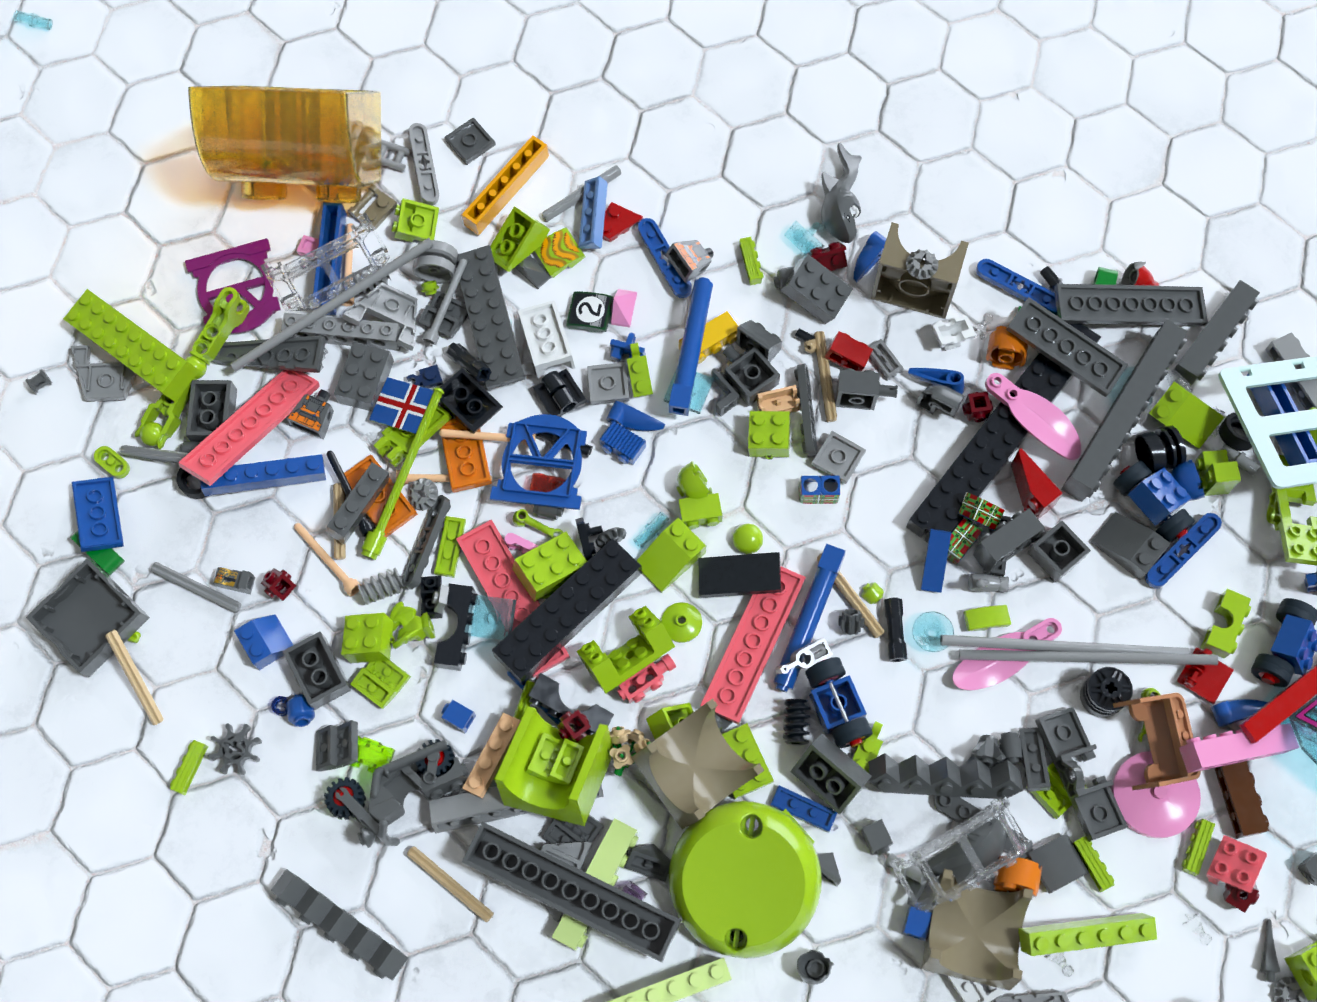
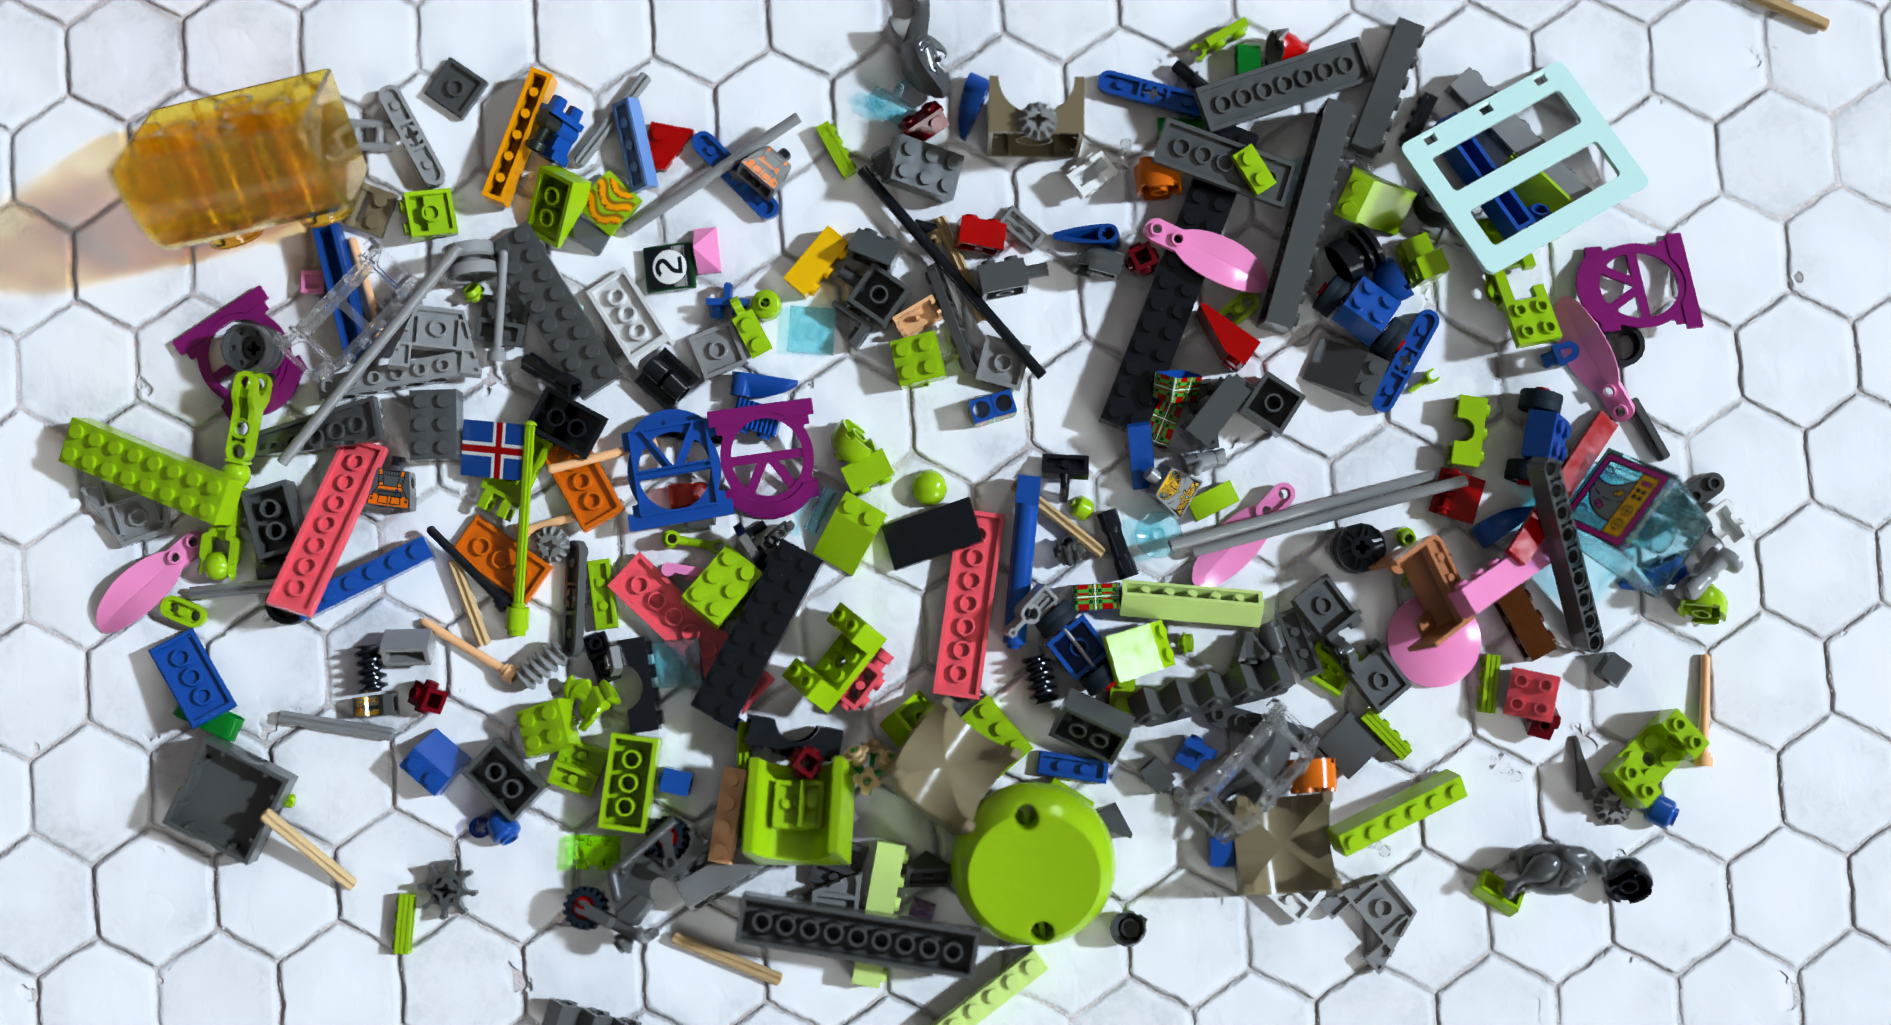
camera: 20 degrees left, 15 degrees up
(38, 381) = (59, 541): dark grey bush -> none
(89, 433) = (145, 585): none -> bright pink plant
(239, 548) = (370, 669): none -> black piece
(245, 276) = (241, 347): none -> dark grey wheel
(277, 540) = (407, 647): none -> light grey brick
(337, 746) = (556, 853): dark grey slope -> none
(358, 503) = (484, 580): dark grey brick -> none
(419, 703) = (629, 782): none -> lime brick
(428, 377) = (510, 402): dark blue plate -> none
(540, 184) = (556, 130): none -> blue hips
(645, 250) = (711, 174): none -> light grey piece
(652, 443) = (793, 414): none -> magenta window
(658, 358) = (769, 312): none -> lime head
(686, 631) = (884, 615): lime dish -> none
(691, 346) = (800, 283): blue brick -> none
(818, 377) = (952, 273): none -> black piece
(865, 667) = (1096, 596): none -> piece
(867, 555) = (1065, 468): none -> black plate
(890, 720) = (1138, 651): none -> slope
(915, 826) = (1192, 752): none -> blue brick
(933, 730) = (1186, 643): none -> lime plate
(947, 696) = (1191, 603): none -> yellowish green brick
(954, 595) = (1171, 489): none -> light grey torso
(1048, 468) = (1238, 310): none -> lime plate
(1086, 259) = (1218, 40): none -> lime plate
(1090, 357) = (1253, 170): none -> lime plate
(1199, 571) = (1425, 380): none -> lime hand
(1247, 354) = (1419, 117): none -> black piece
(1294, 747) = (1565, 554): none -> dark grey beam

